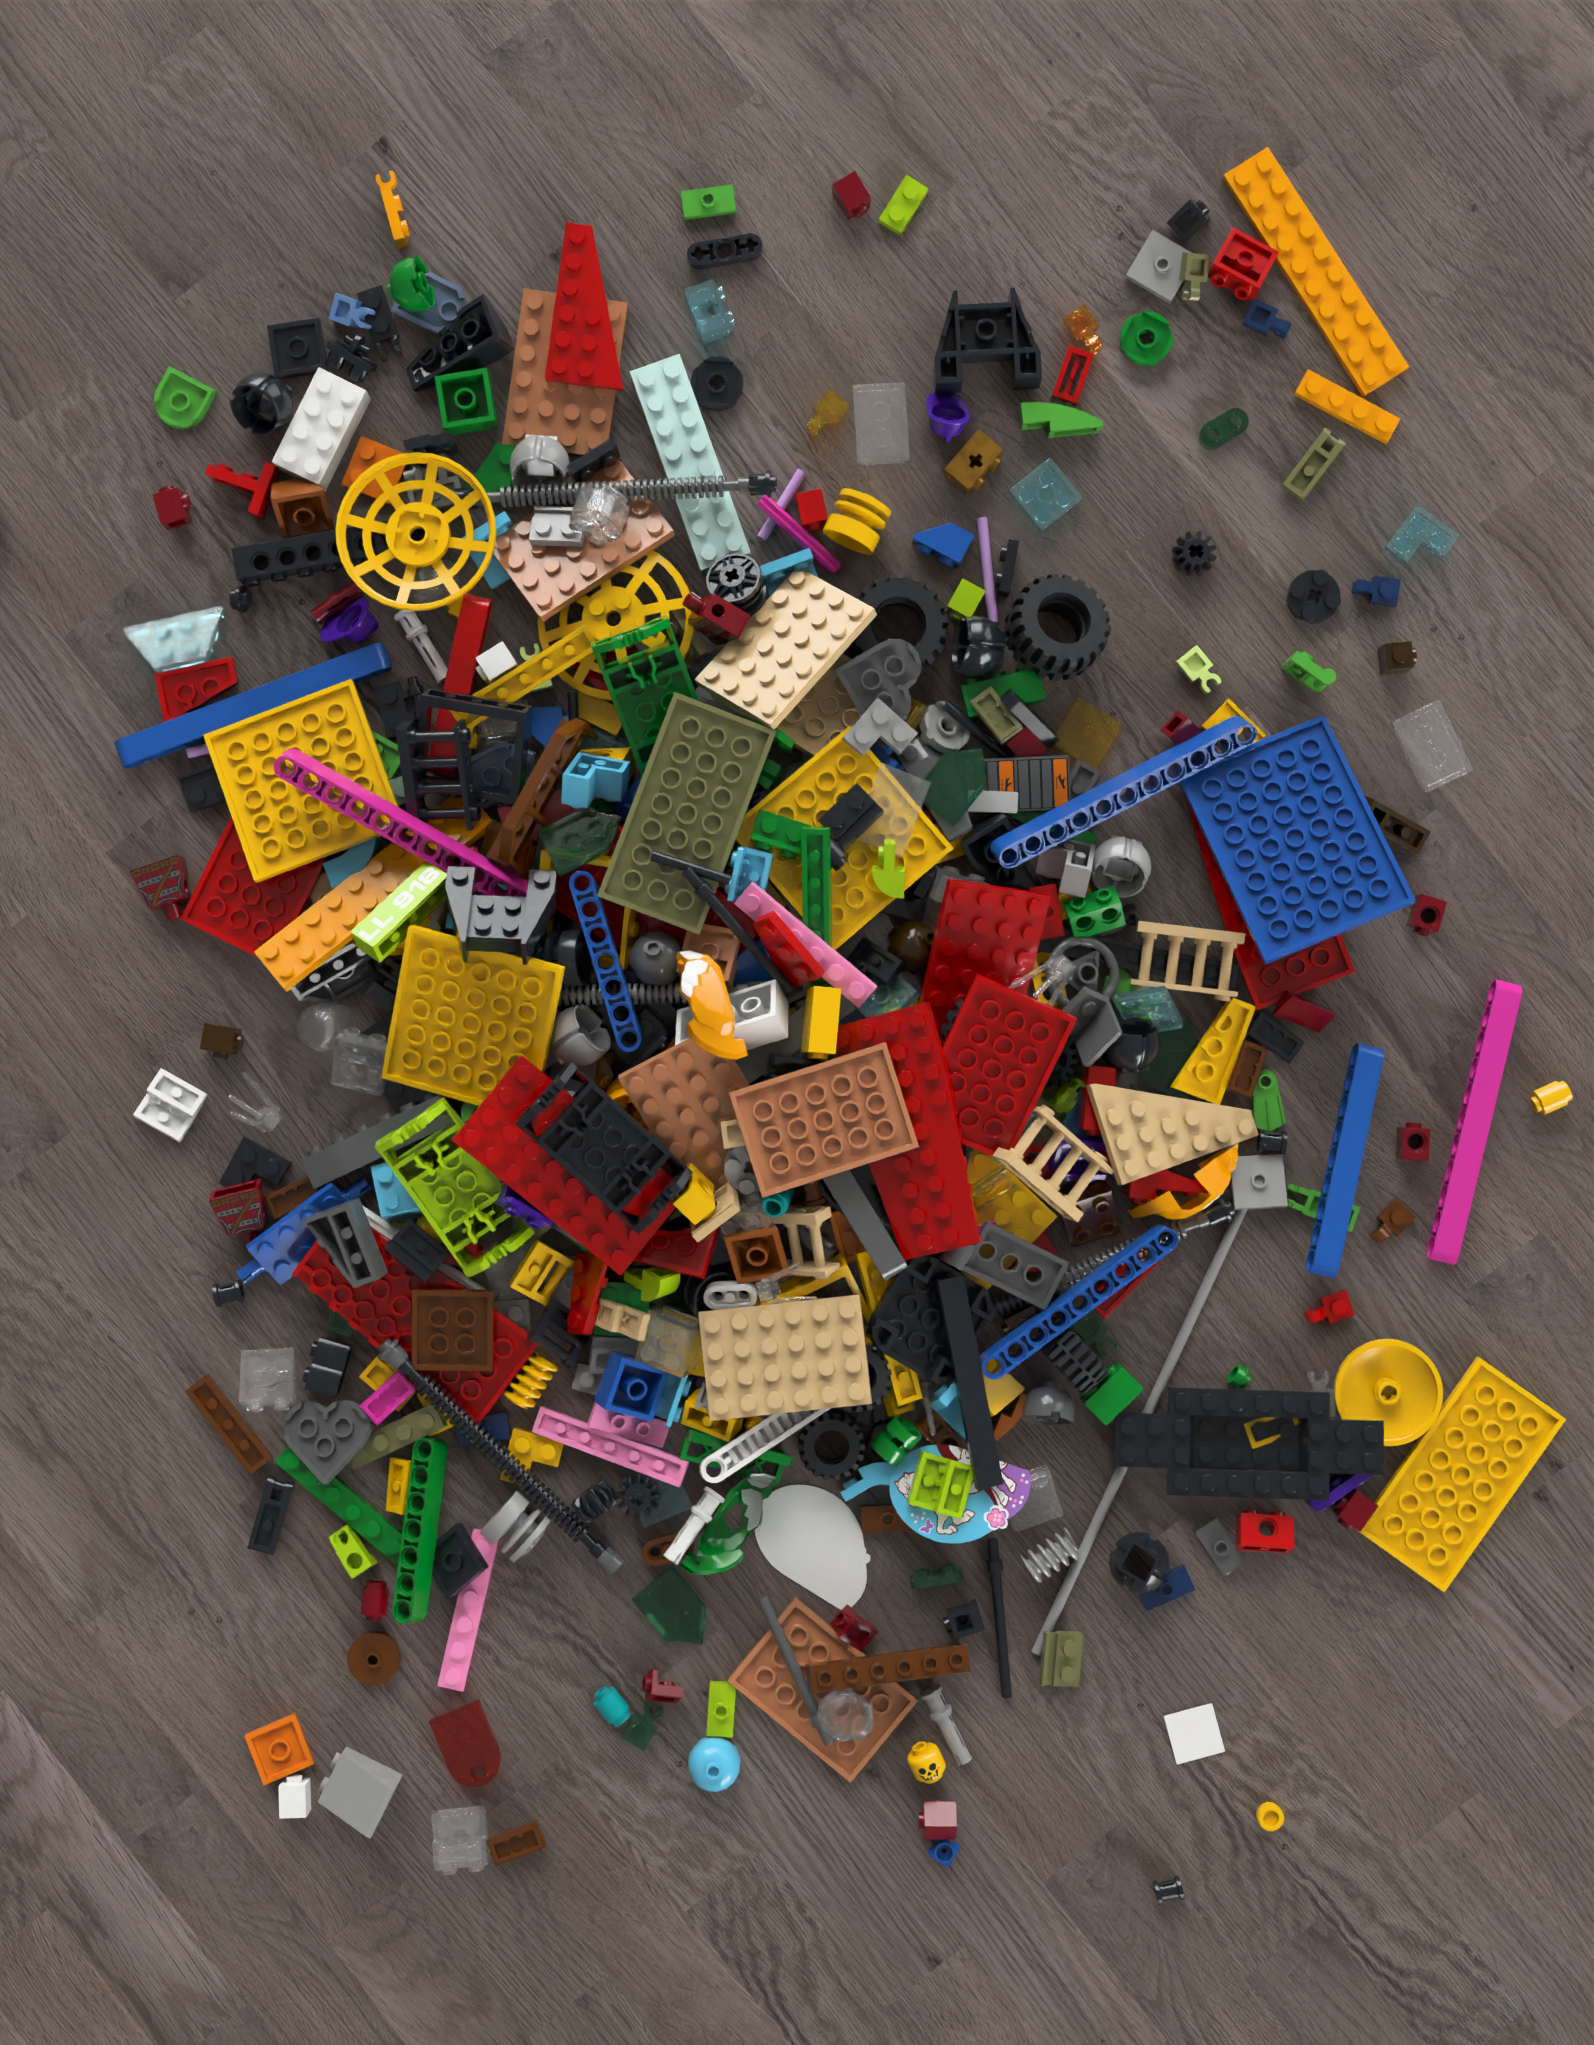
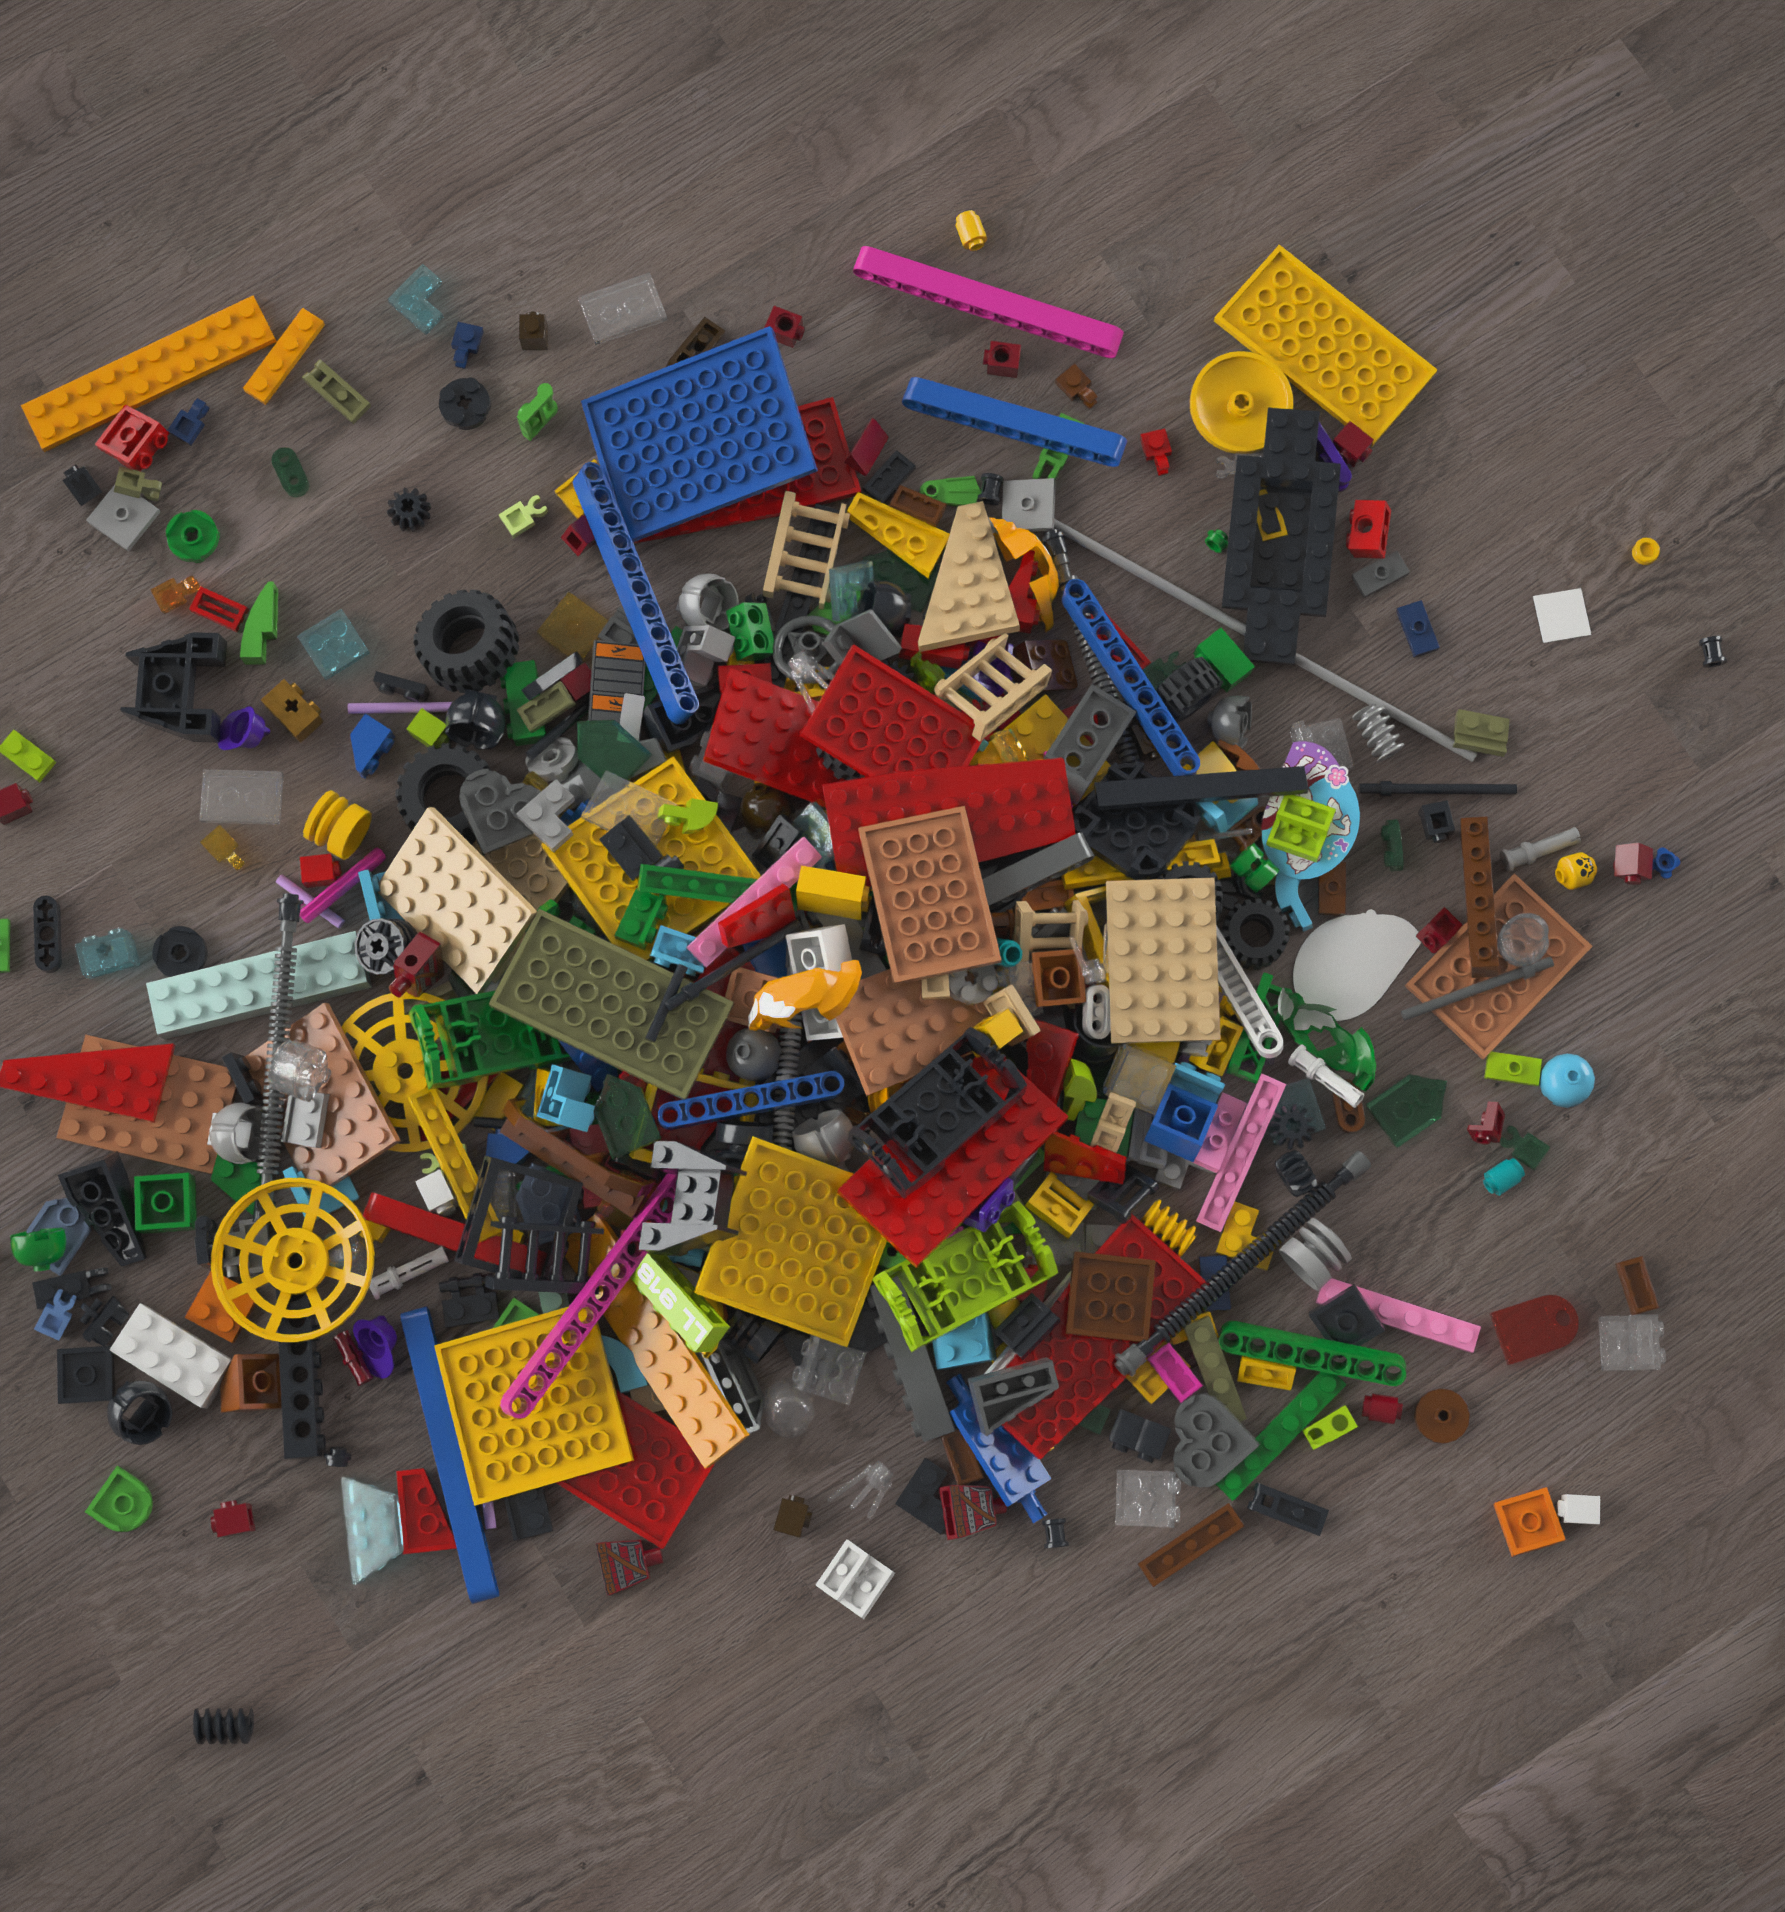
camera: 85 degrees left, 10 degrees down
(248, 483) = (218, 1440): red bracket -> none
(358, 1790) = (1575, 1440): light grey slope -> none
(1145, 1542) = (1403, 662): black piece -> none

